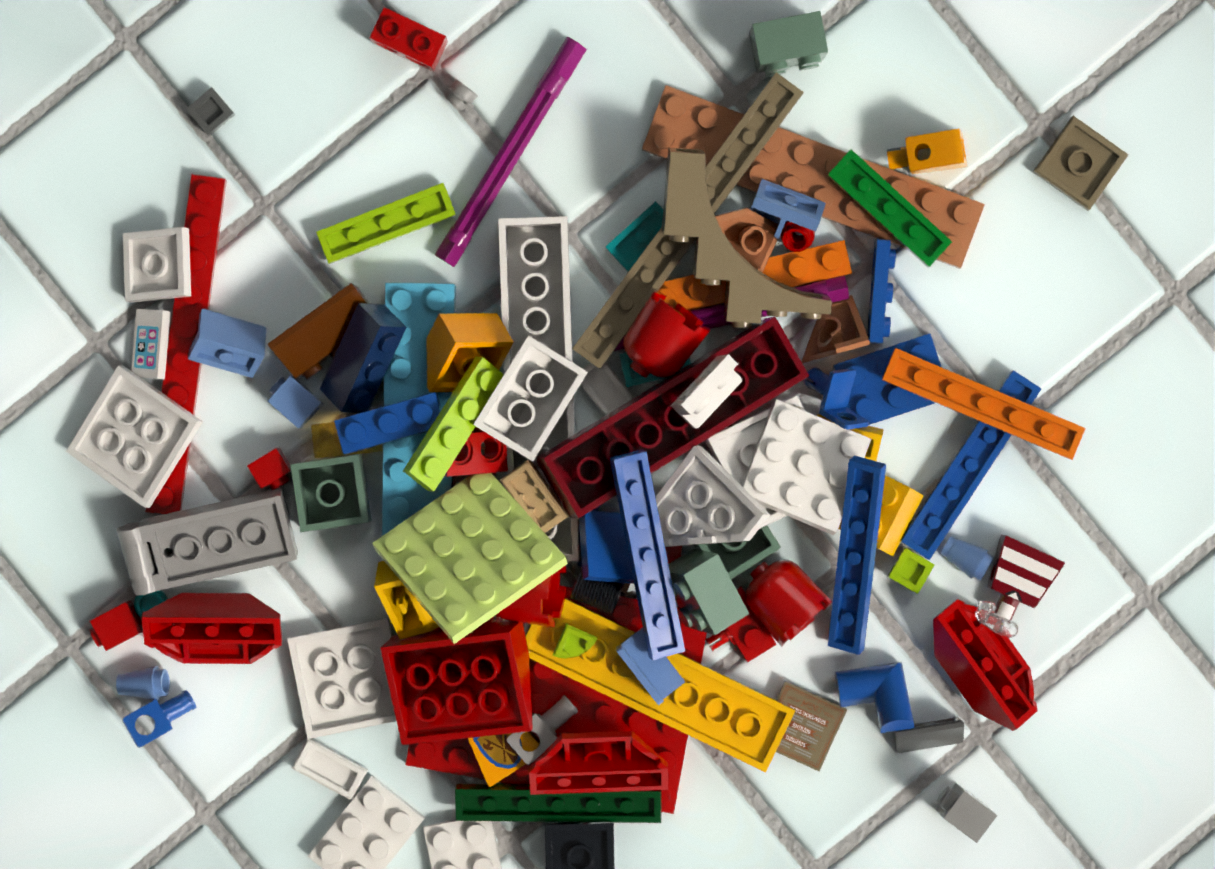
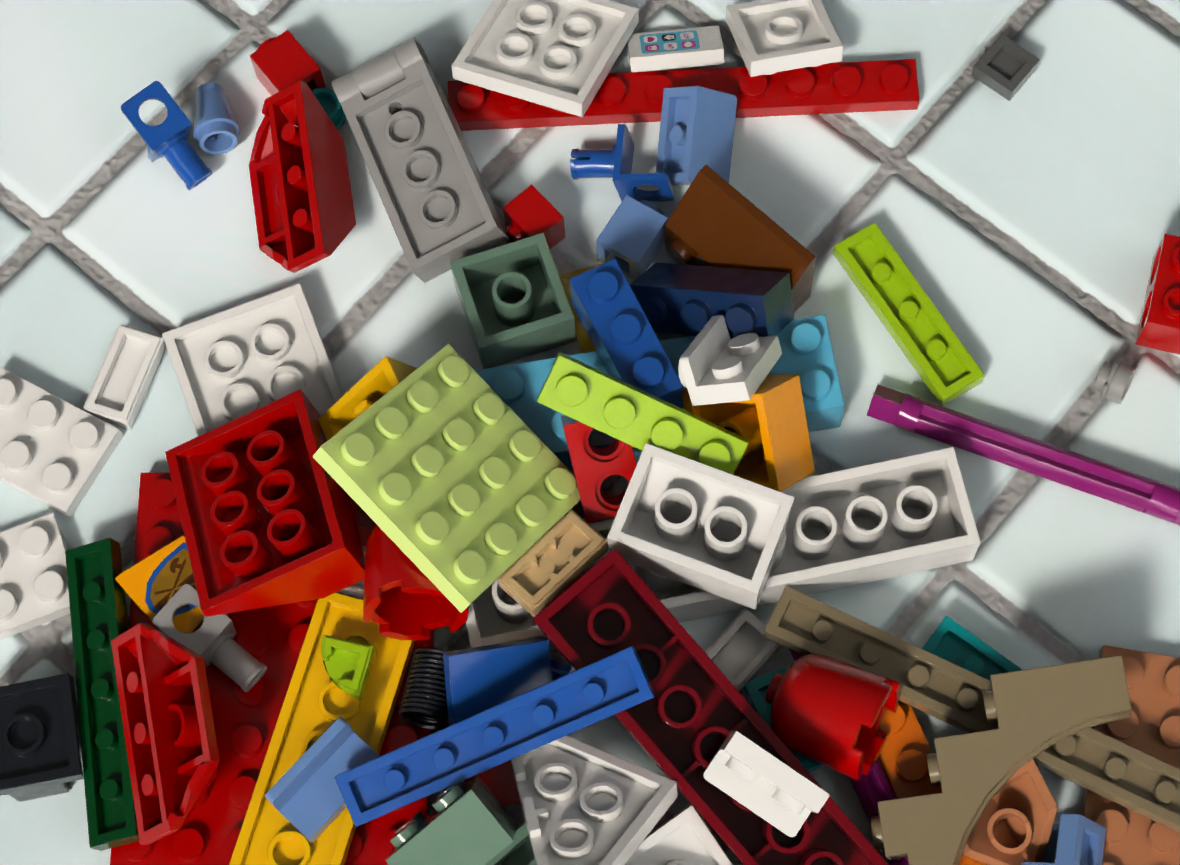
camera: 85 degrees right, 20 degrees down
(236, 402) = (617, 164): none -> blue bracket
(423, 359) = (726, 368): none -> white bracket

